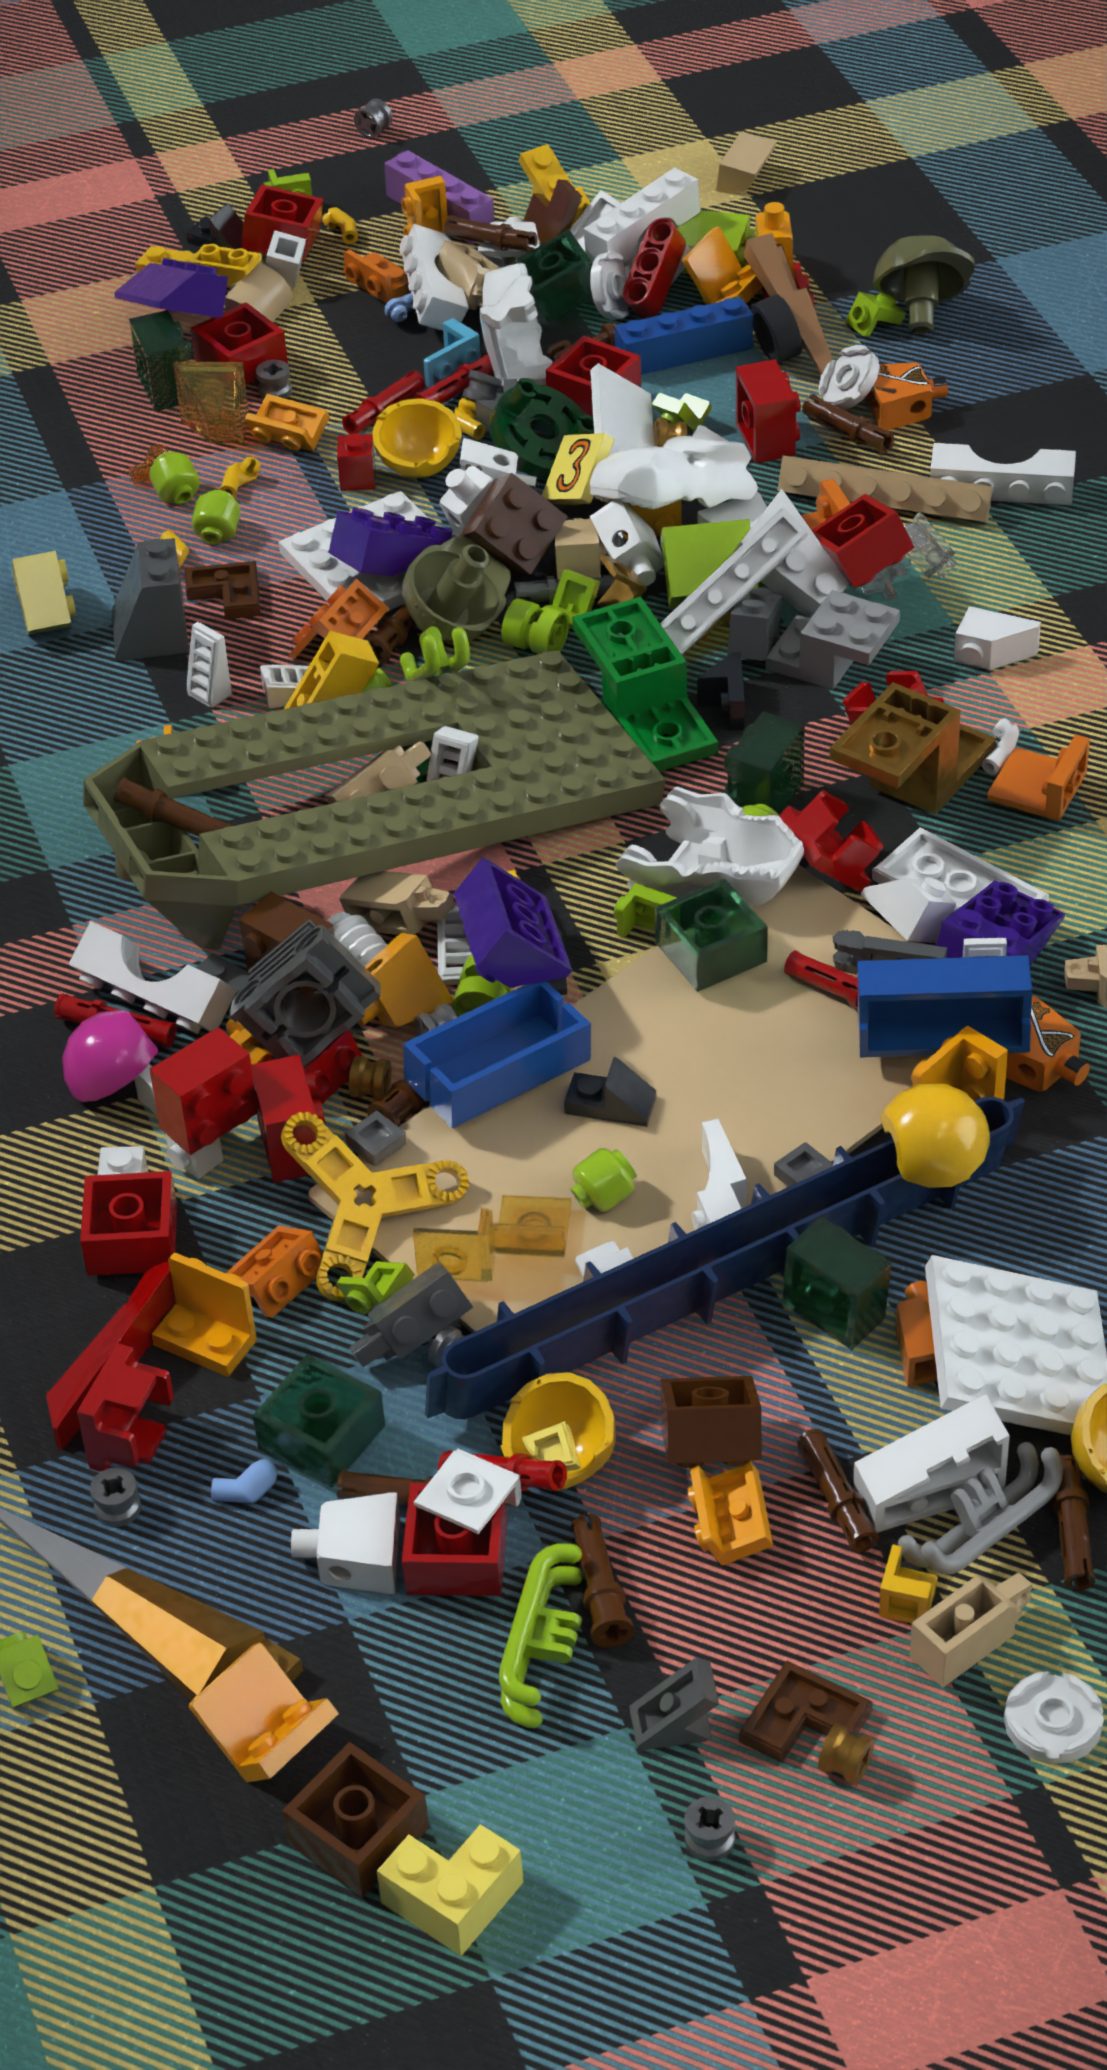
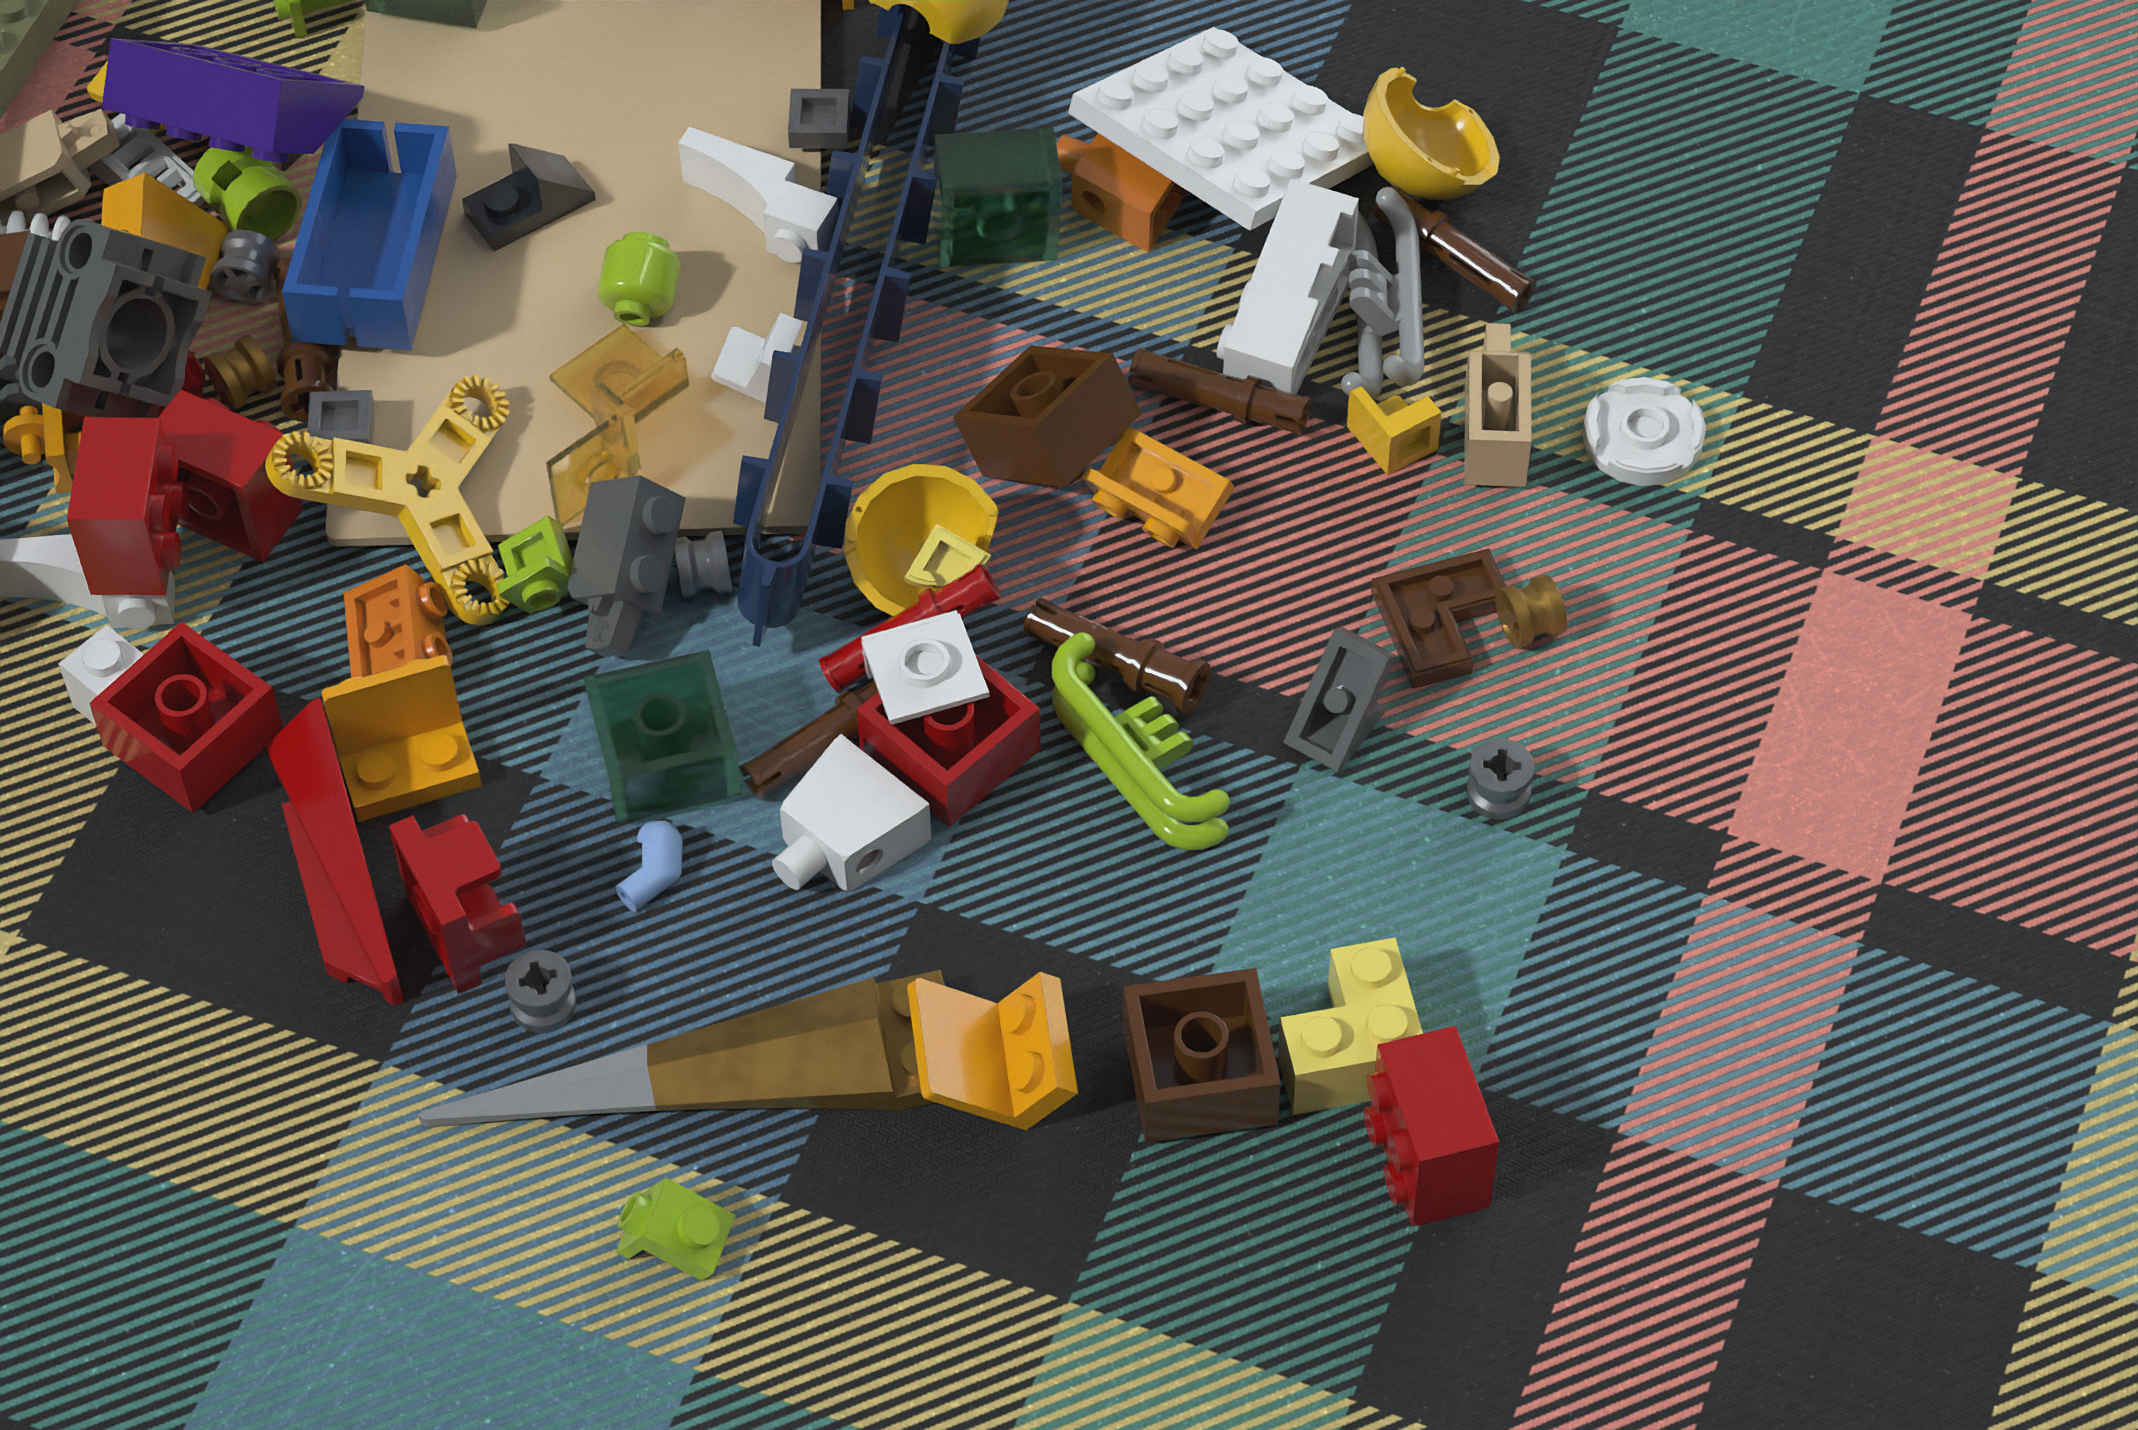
camera: 50 degrees left, 10 degrees up
(412, 1967) = (1431, 1127): none -> red brick

